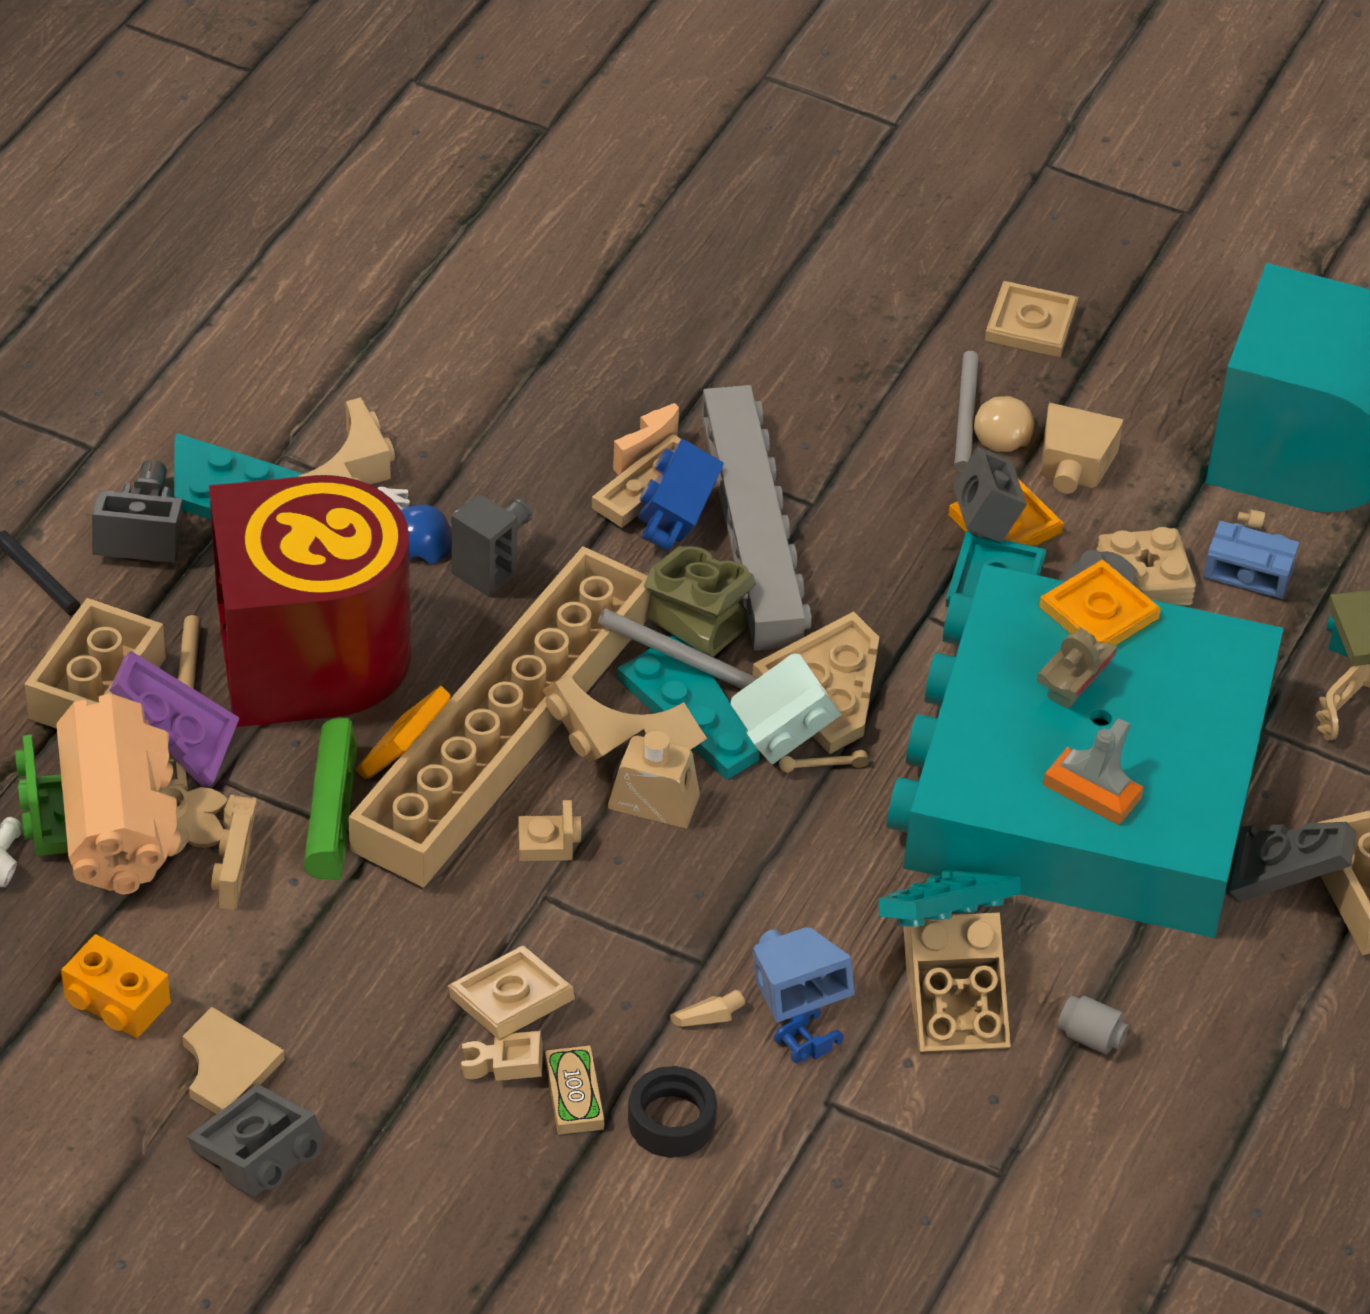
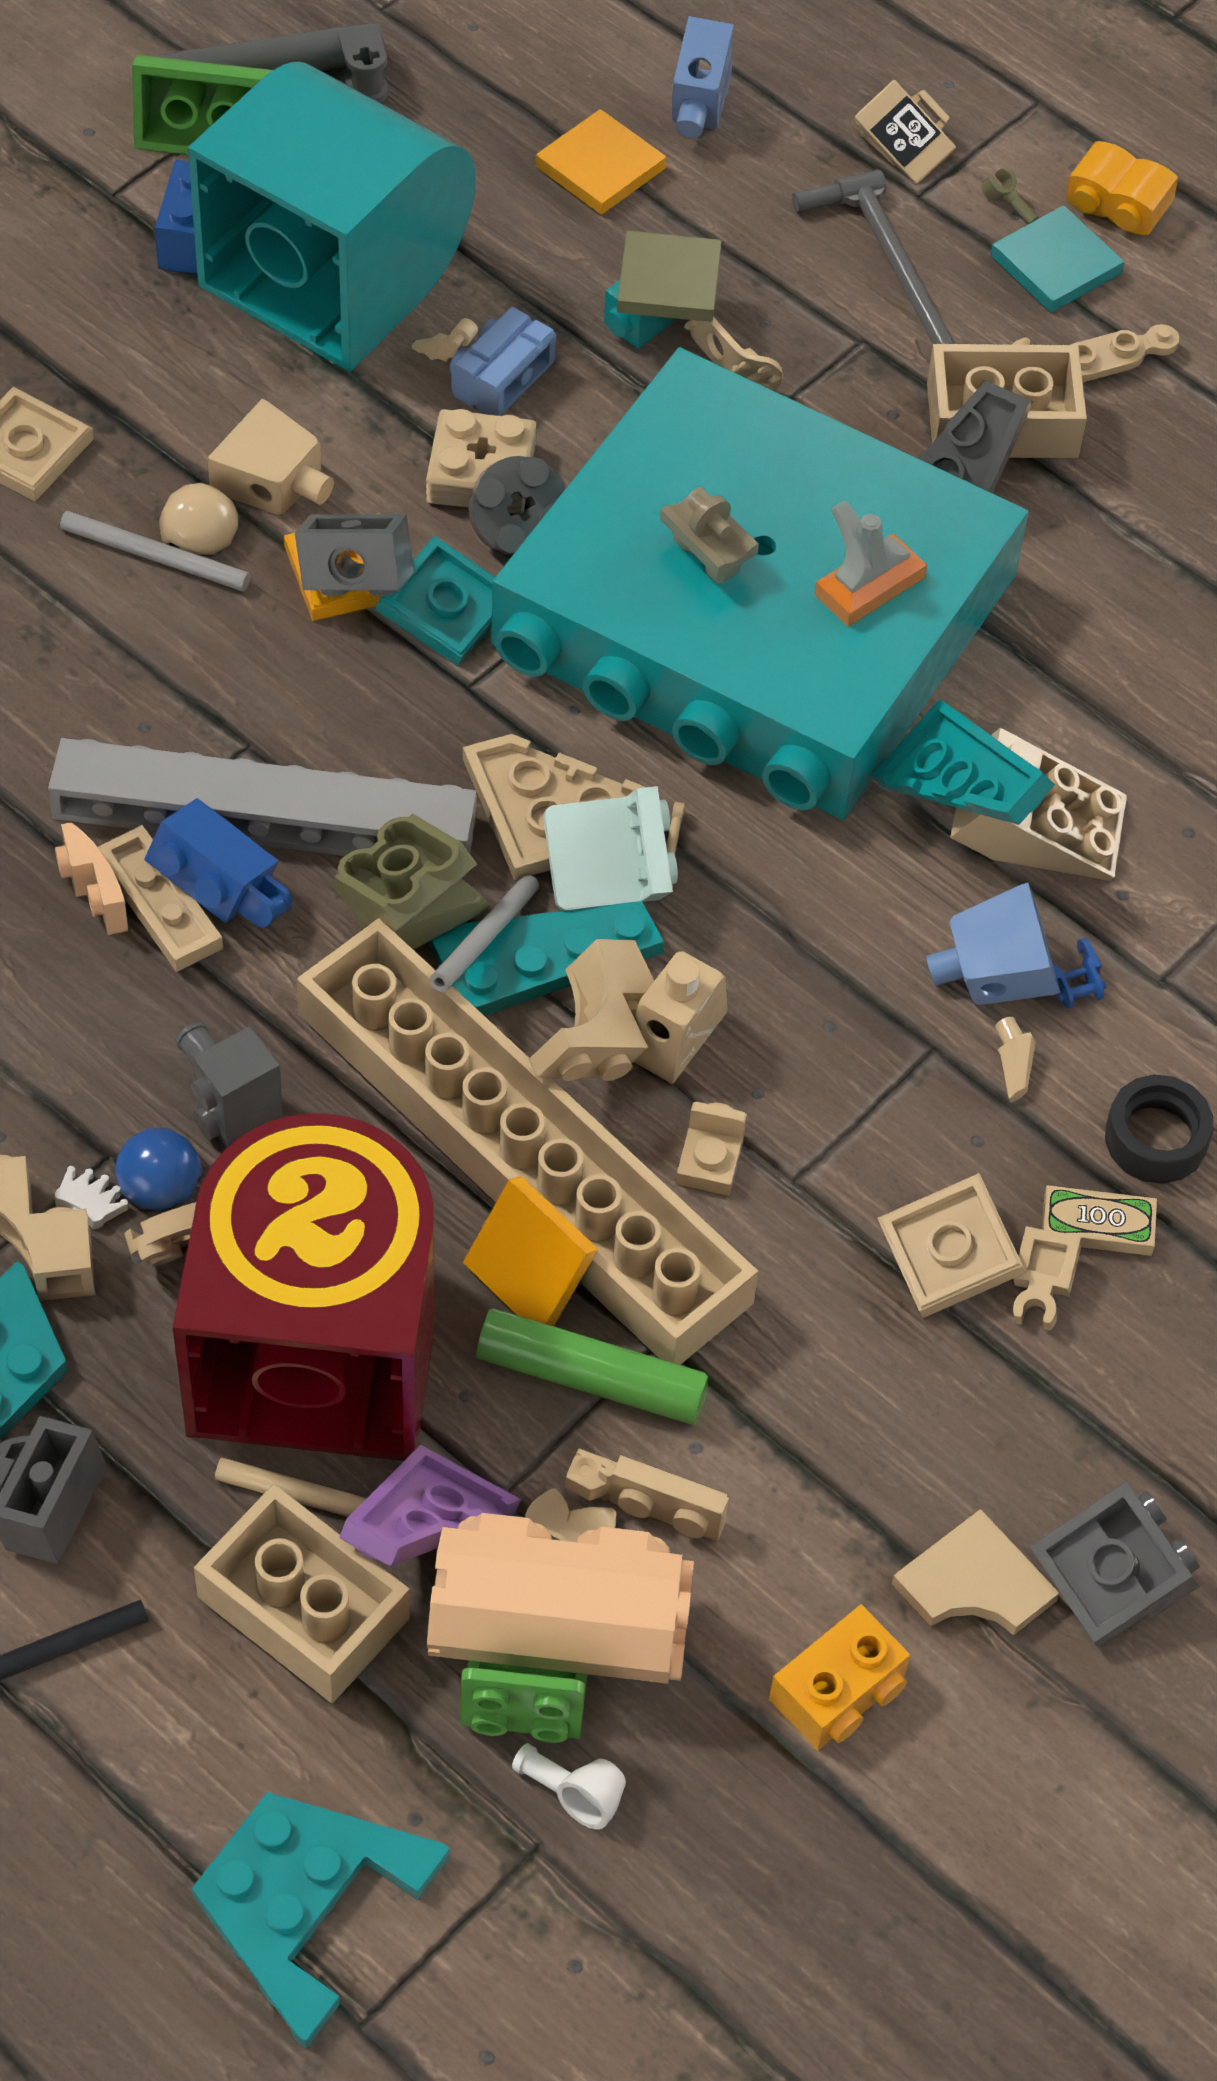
camera: 75 degrees left, 10 degrees up
(1093, 1024) = (1127, 708): light grey brick -> none
(1101, 604) = (603, 492): light orange tile -> none

